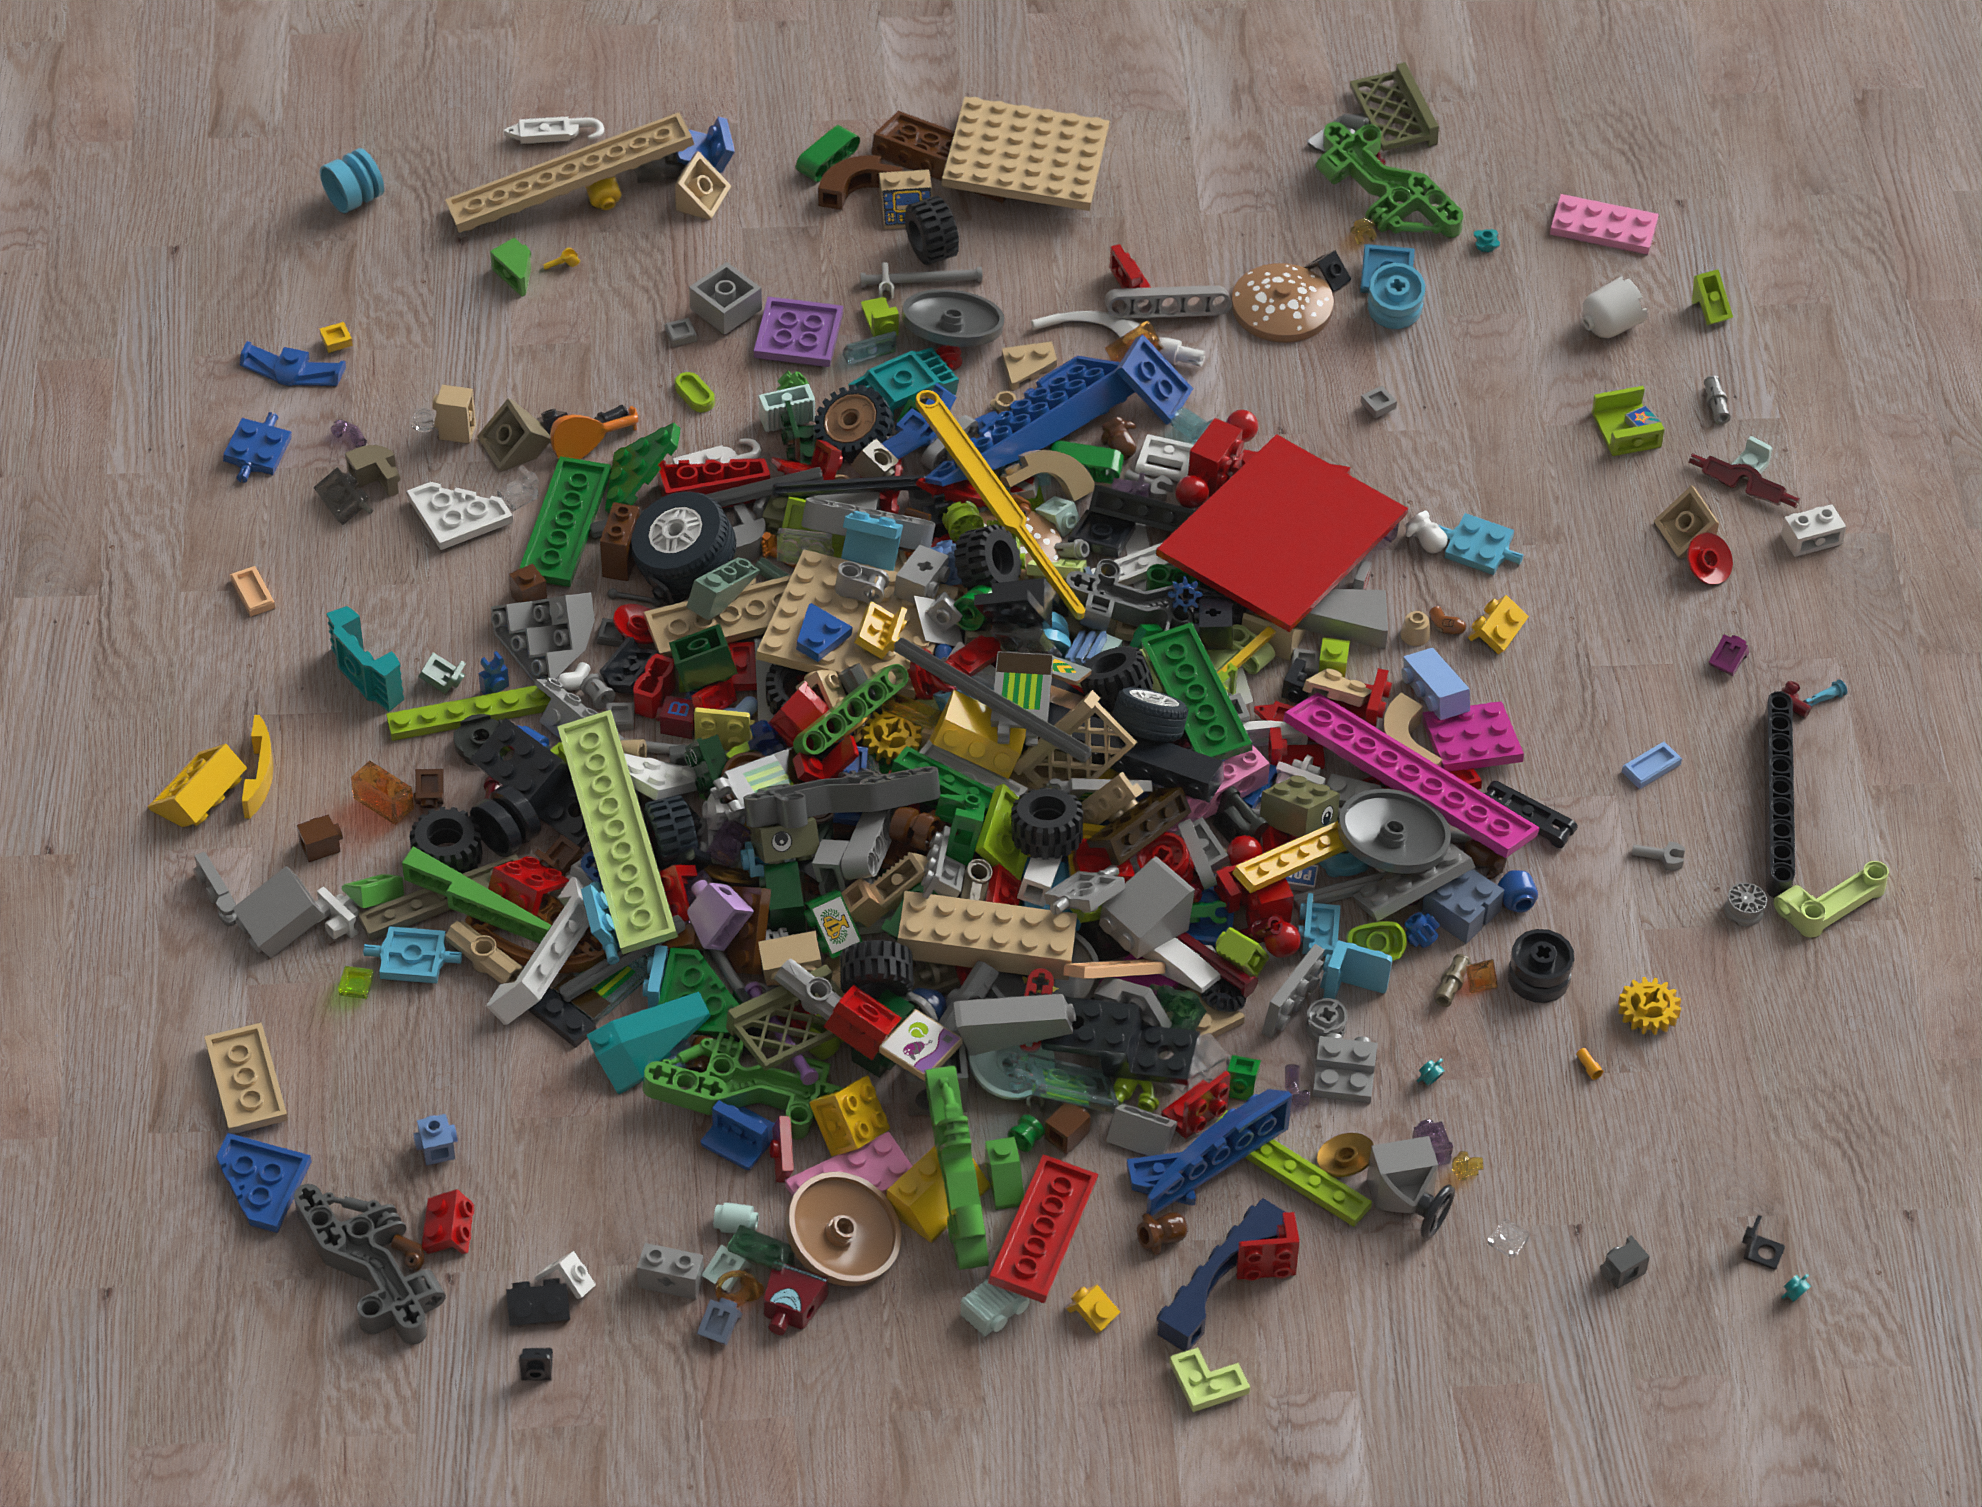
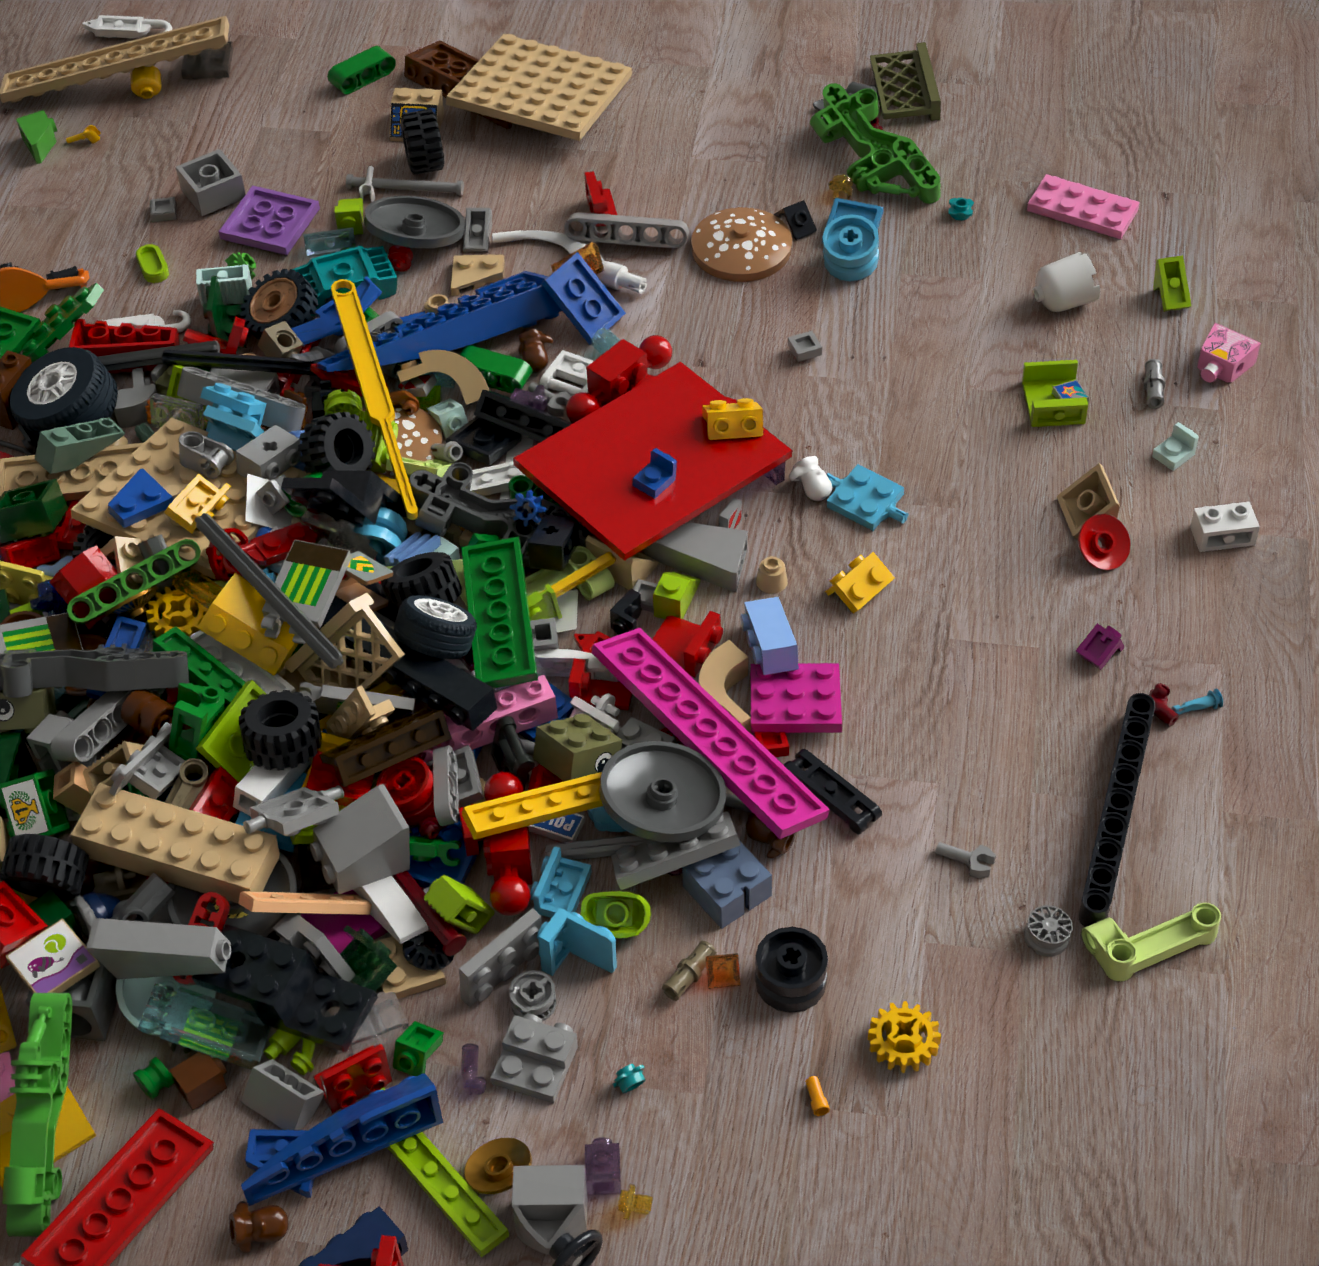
camera: 15 degrees right, 0 degrees up
(700, 188) = (231, 86): tan slope -> none
(714, 146) = (247, 54): blue bracket -> none
(811, 769) = (80, 638): red bracket -> none
(850, 176) = (368, 92): reddish brown arch -> none
(880, 553) = (230, 428): none -> medium azure bracket
(914, 468) = (315, 354): none -> flat silver sword
(1004, 1172) = (110, 1120): bright green slope -> none
(1016, 320) = (477, 230): none -> light grey slope
(1258, 929) = (485, 881): dark red pin -> none
(1296, 547) = (657, 474): none -> blue bracket
(1338, 687) = (662, 625): tan wing -> none
(1348, 485) = (733, 419): none -> yellow bracket
(1421, 929) = (670, 906): blue gear -> none
(1446, 624) = (805, 574): dark orange arm -> none
(1519, 891) = (792, 877): blue head -> none
(1651, 765) = (984, 755): light blue tile -> none
(1756, 486) = (1174, 474): dark red piece -> none
(1777, 363) = (1226, 355): none -> bright pink torso

